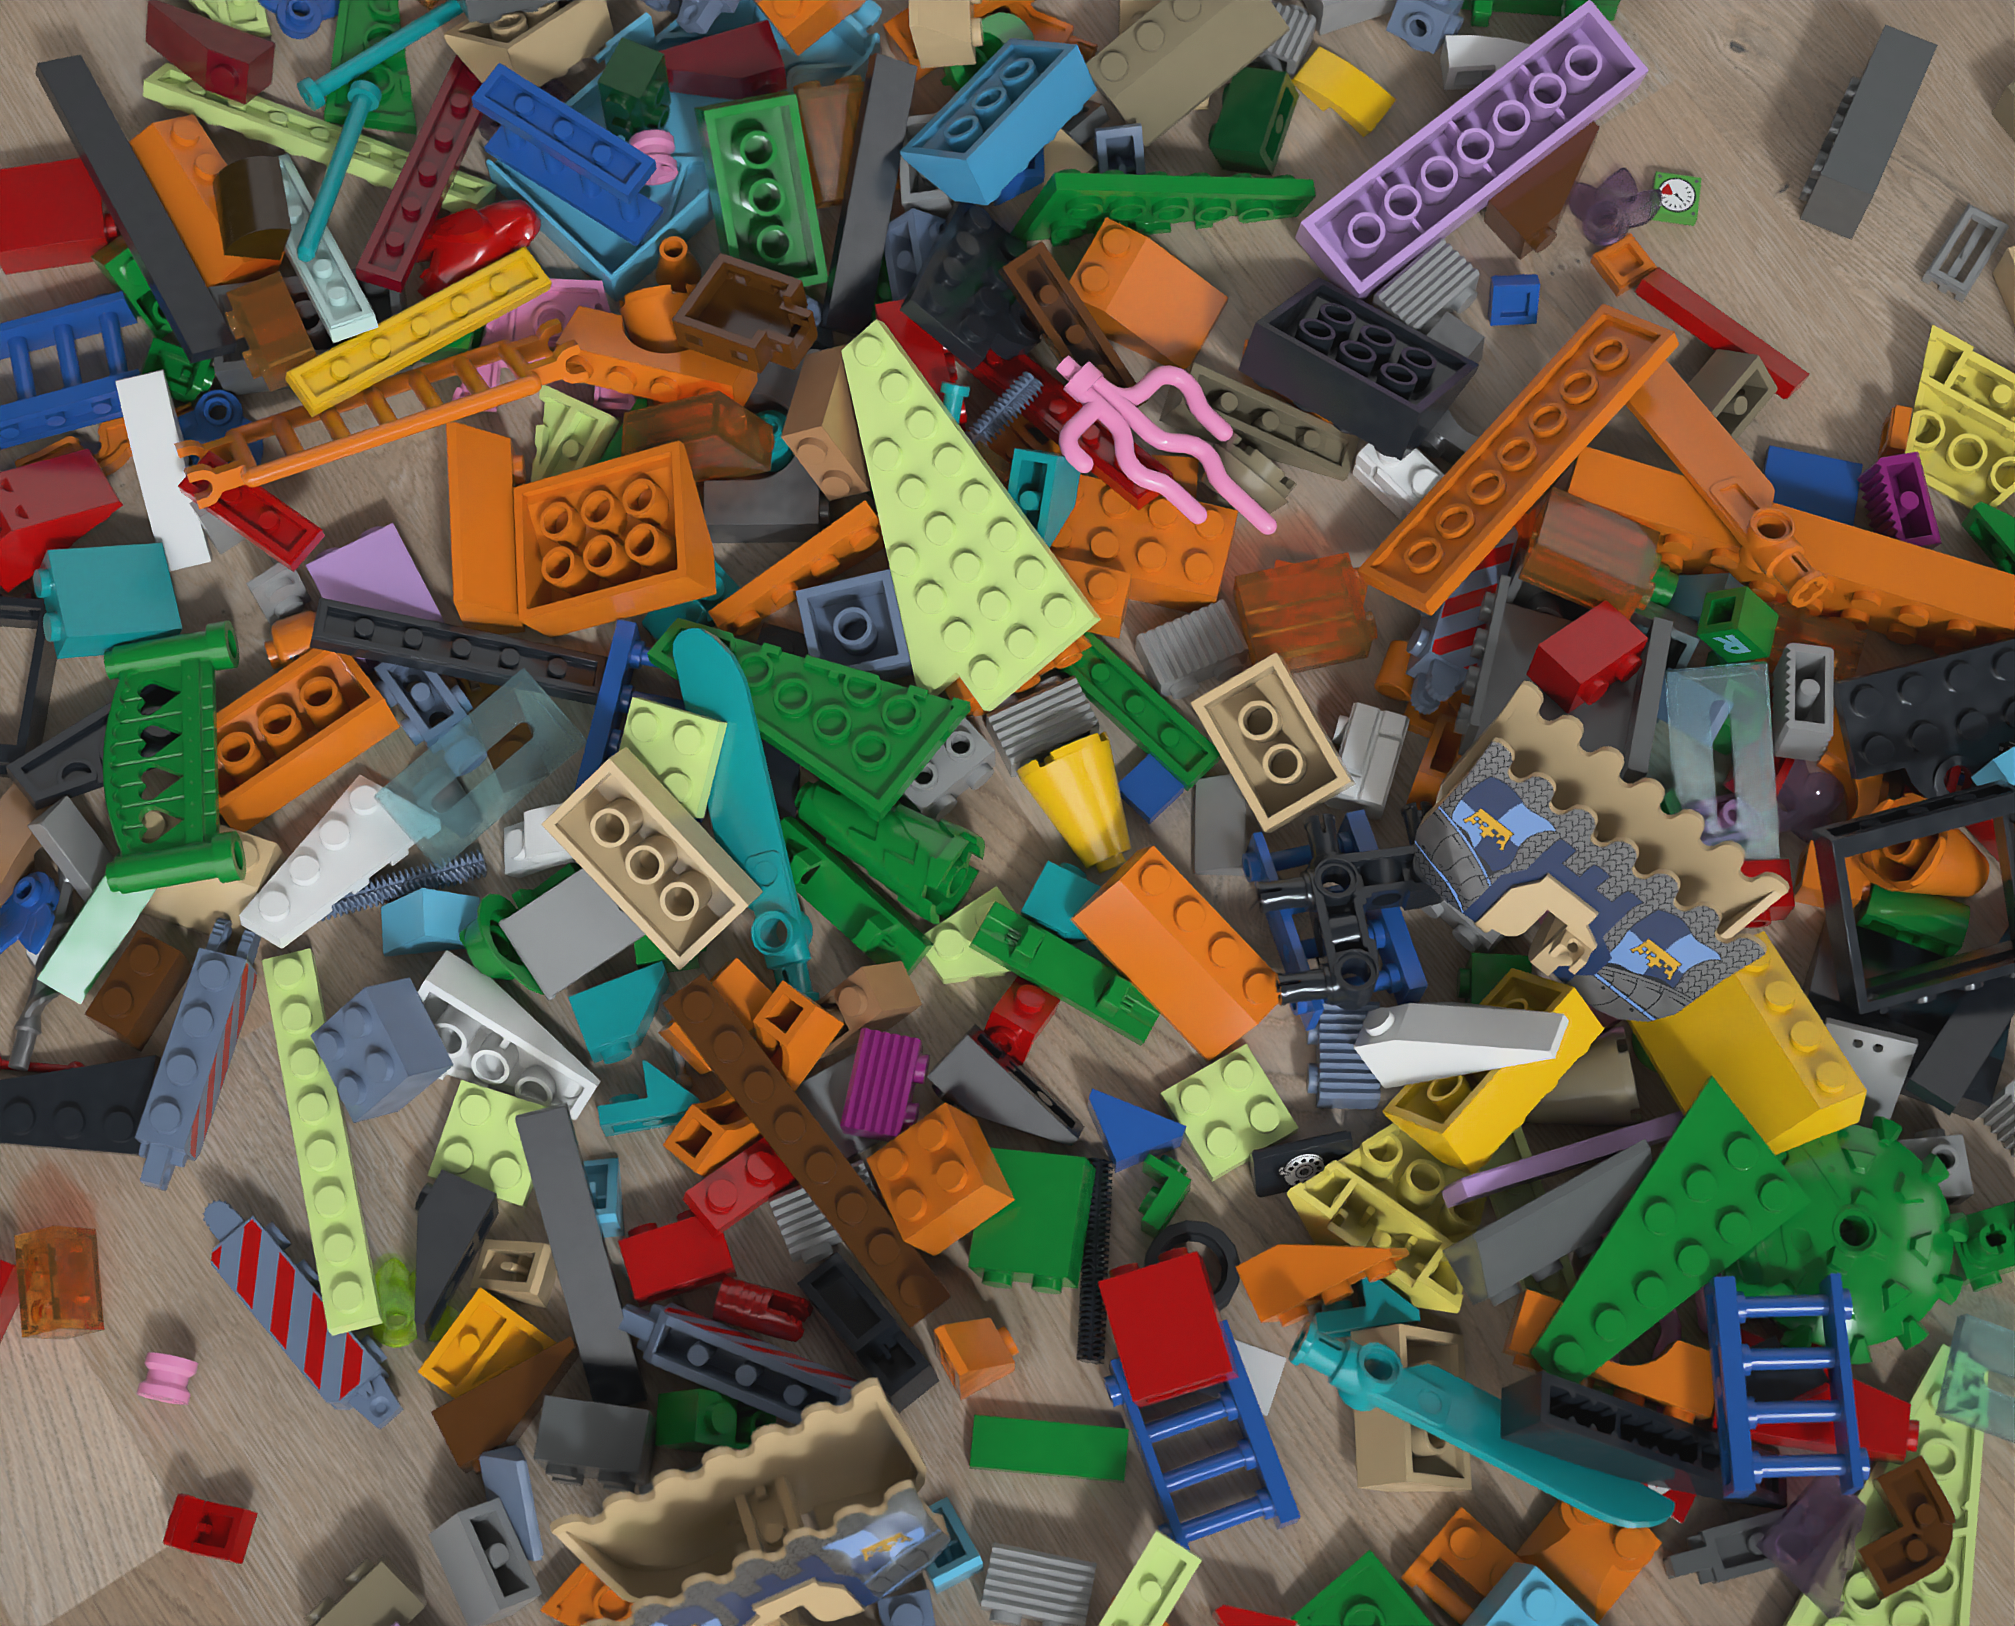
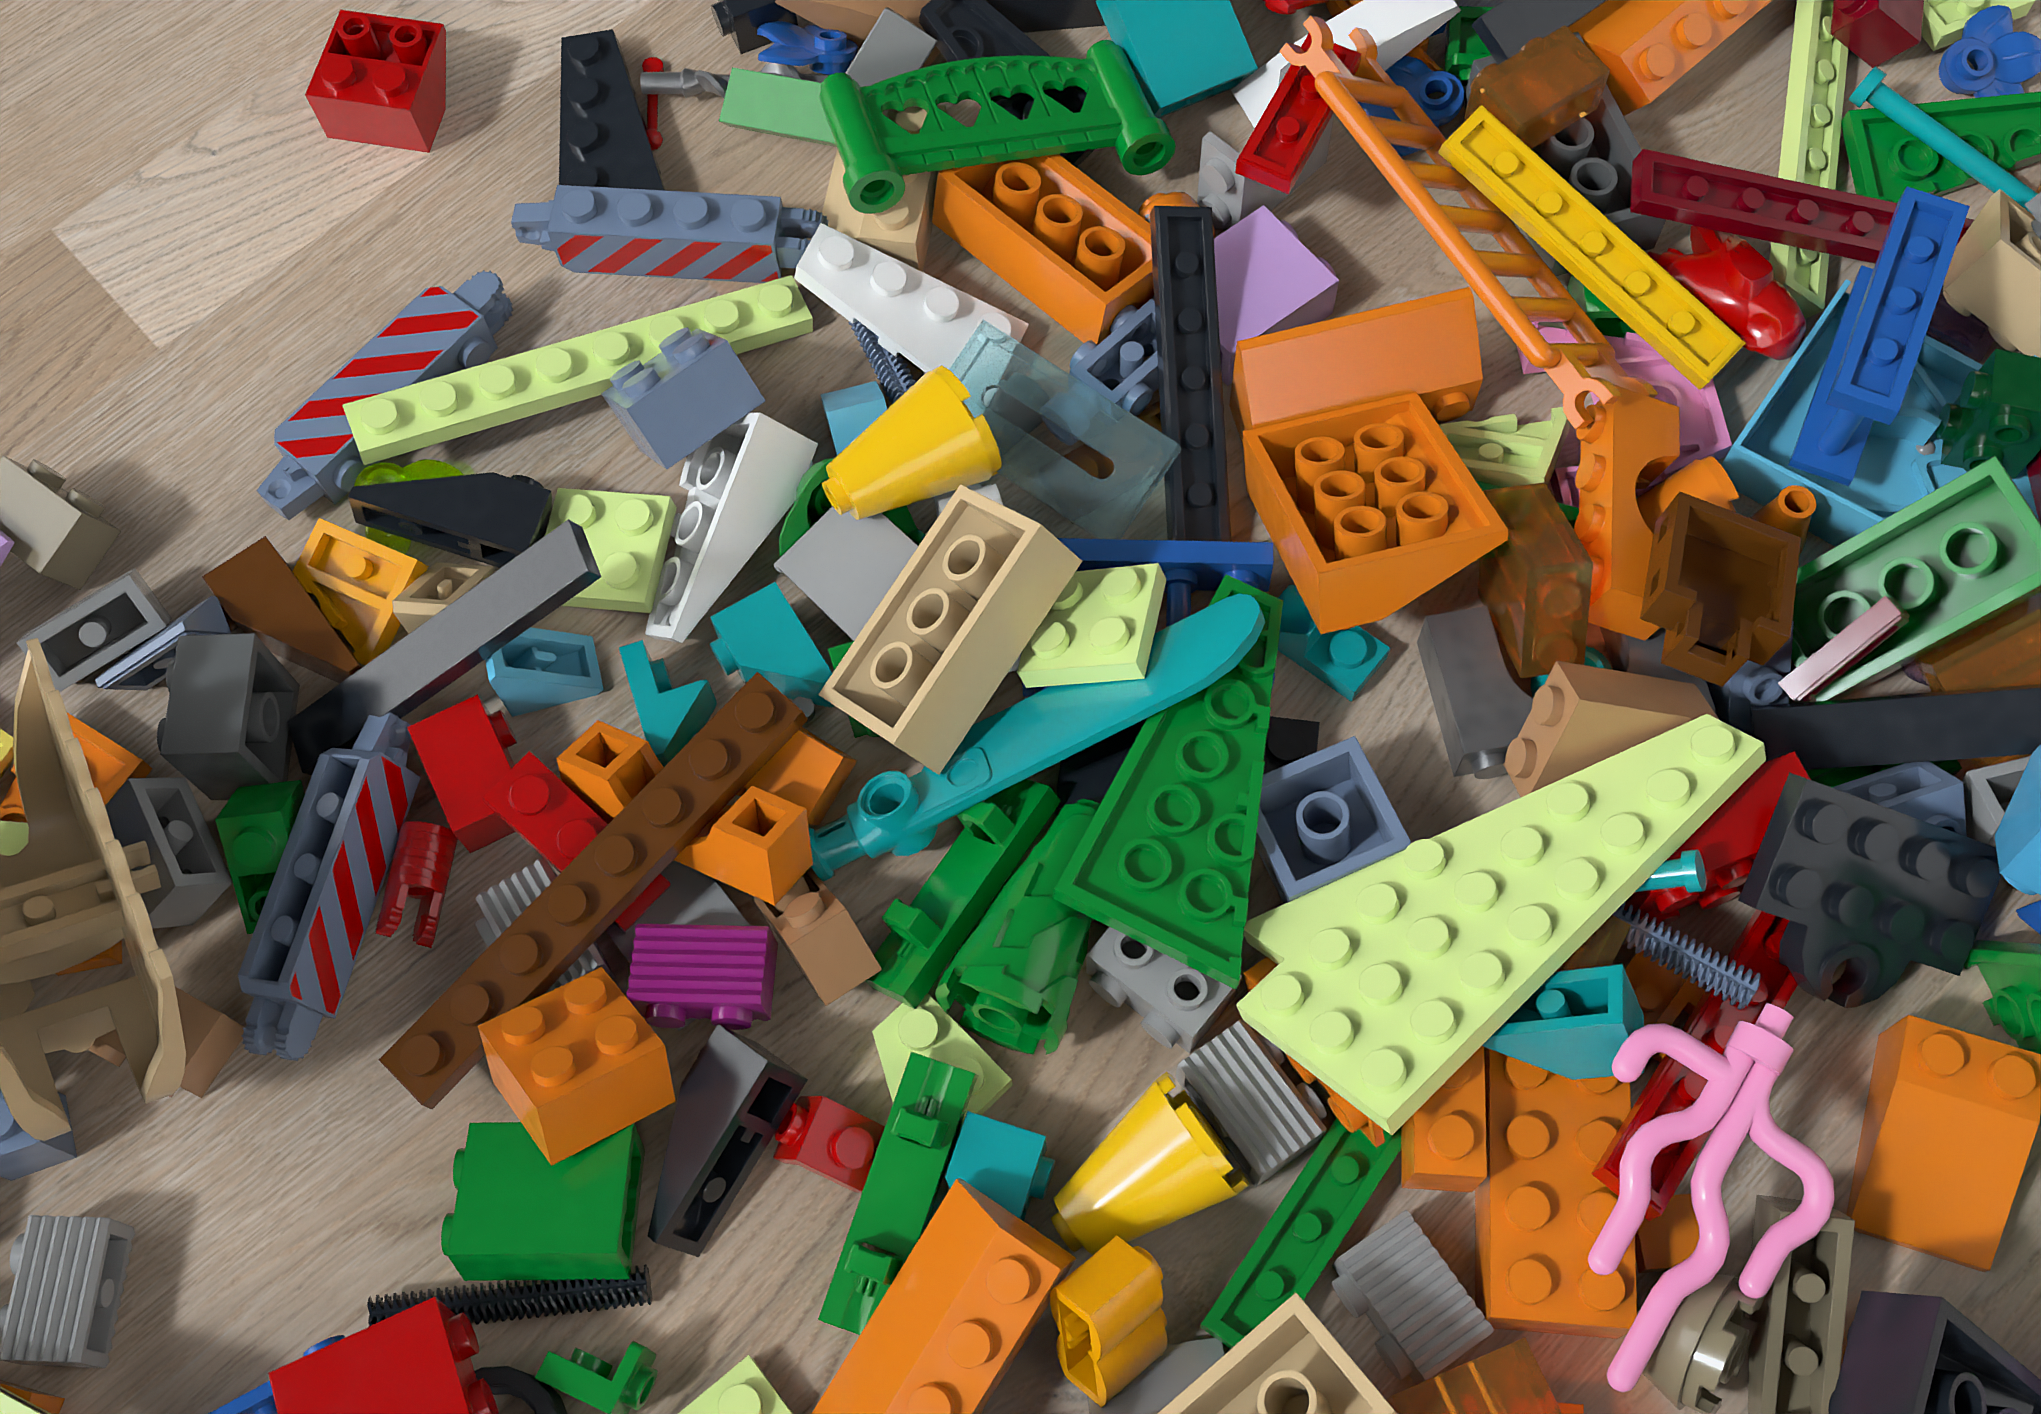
camera: 85 degrees right, 5 degrees down
(59, 1282) = (402, 162): clear orange brick -> none
(139, 990) = (735, 159): reddish brown brick -> none
(167, 1378) = (311, 285): bright pink wheel -> none
(209, 1529) = (152, 357): red bracket -> none
(252, 208) = (1688, 43): dark brown brick -> none
(328, 275) = (1659, 120): light aqua tile -> none
(363, 98) = (1882, 140): teal bar -> none
(492, 859) = (914, 451): none -> yellow cone
(660, 147) = (1922, 463): bright pink wheel -> none
(805, 251) = (1845, 650): none -> tile
(810, 565) = (1404, 755): orange wing -> none
(868, 1331) = (344, 1057): black slope -> none
(959, 1558) = (115, 1160): medium azure slope -> none
(974, 1354) = (339, 1143): orange slope -> none
(1049, 1448) = (255, 1278): green tile -> none
(1061, 314) = (1859, 1018): reddish brown brick -> none
(1131, 1131) = (685, 1317): blue slope -> none
(1150, 789) = (1195, 1270): blue tile -> none
(1181, 835) = (1110, 1319): none -> light orange brick

